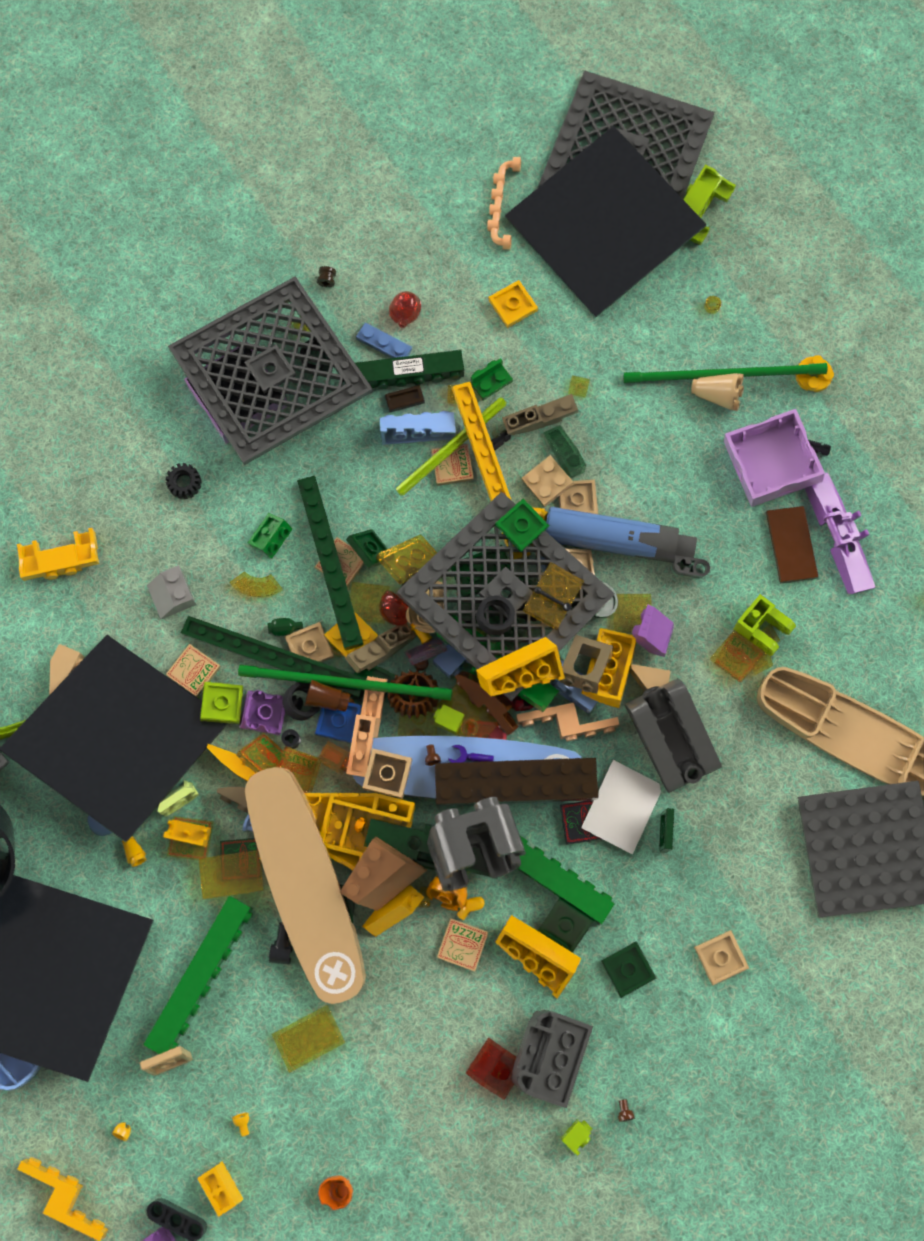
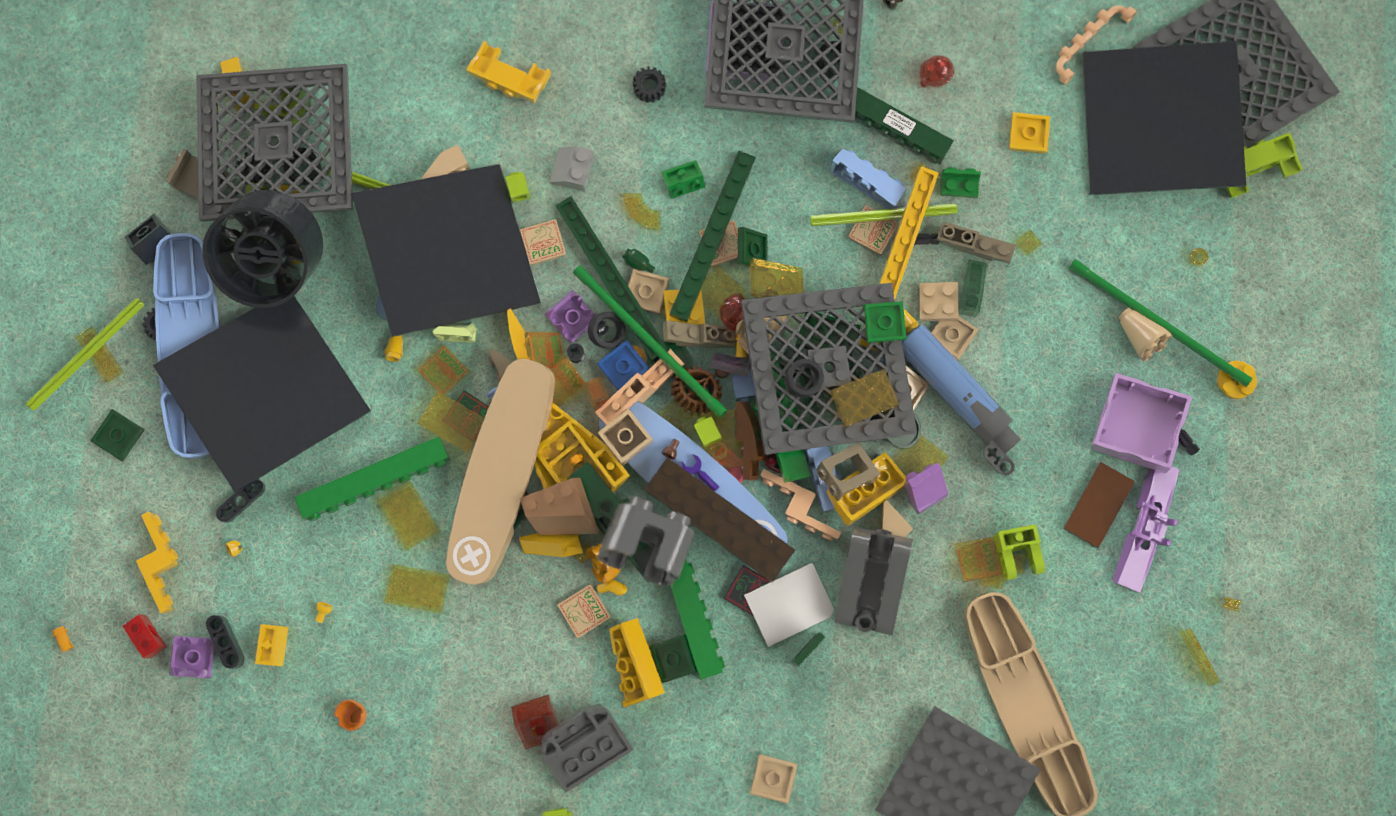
camera: 40 degrees right, 5 degrees up
(89, 1090) = (233, 514): none -> black beam
(137, 641) = (518, 186): none -> lime brick
(166, 1061) = (301, 522): tan tile -> none
(187, 833) = (444, 365): yellow hinge -> none
(221, 703) = (545, 284): lime tile -> none
(254, 982) = (408, 516): none -> clear yellow tile
(281, 948) = (446, 507): black pin -> none
(326, 697) = (626, 341): reddish brown plant -> none
(383, 342) = (896, 87): medium blue plate -> none
(404, 398) = (877, 147): dark brown tile -> none
(522, 668) = (791, 436): yellow wedge -> none
(566, 606) = (867, 414): black hinge -> none
(628, 969) = (695, 730): dark green tile -> none

